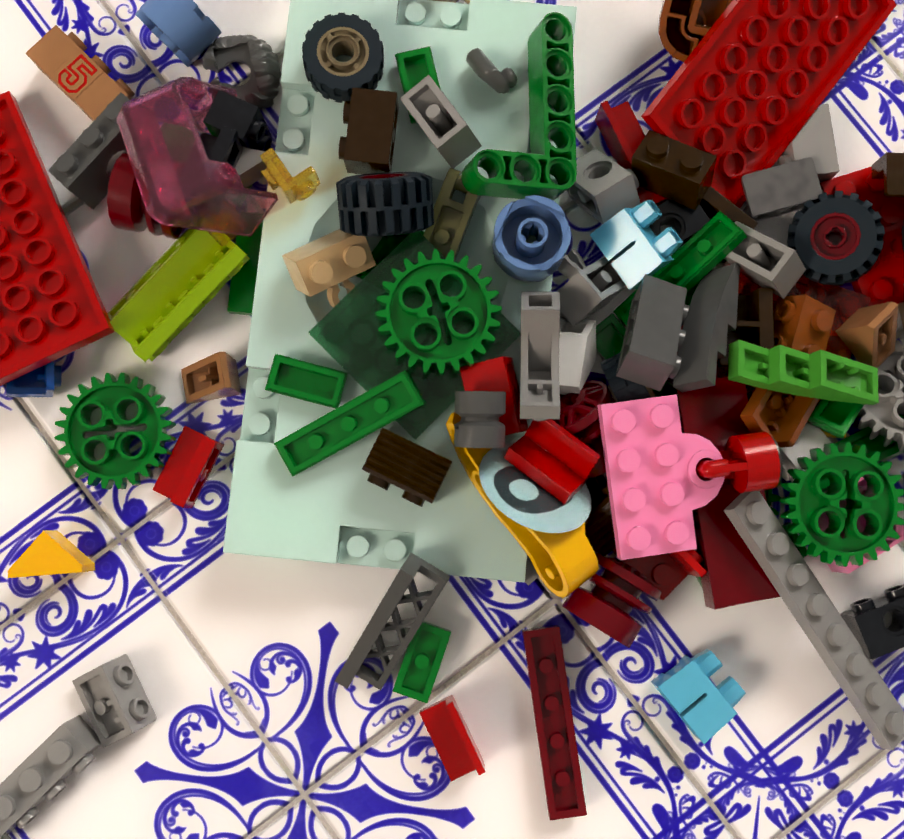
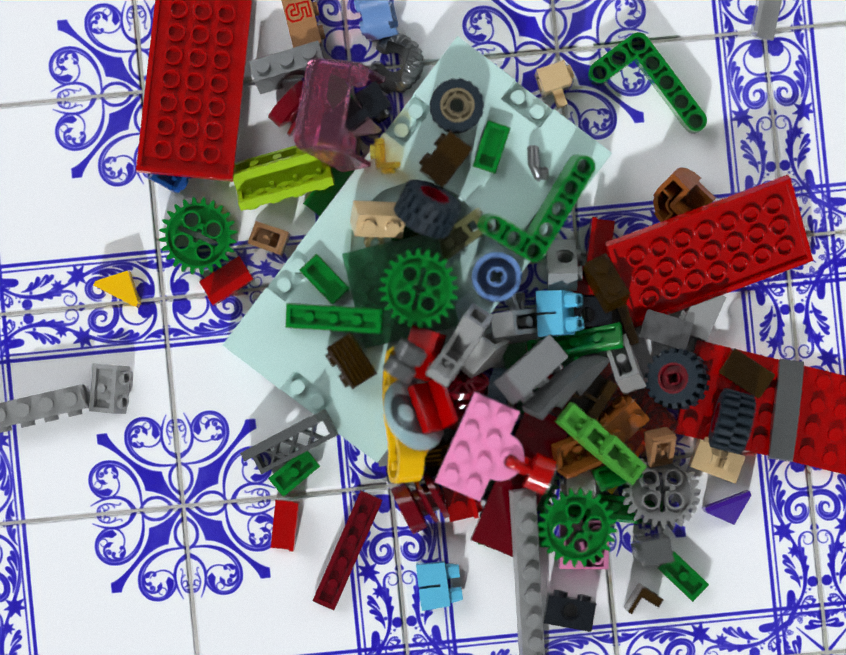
camera: 30 degrees right, 5 degrees up
(440, 121) = (487, 179): light grey slope -> none

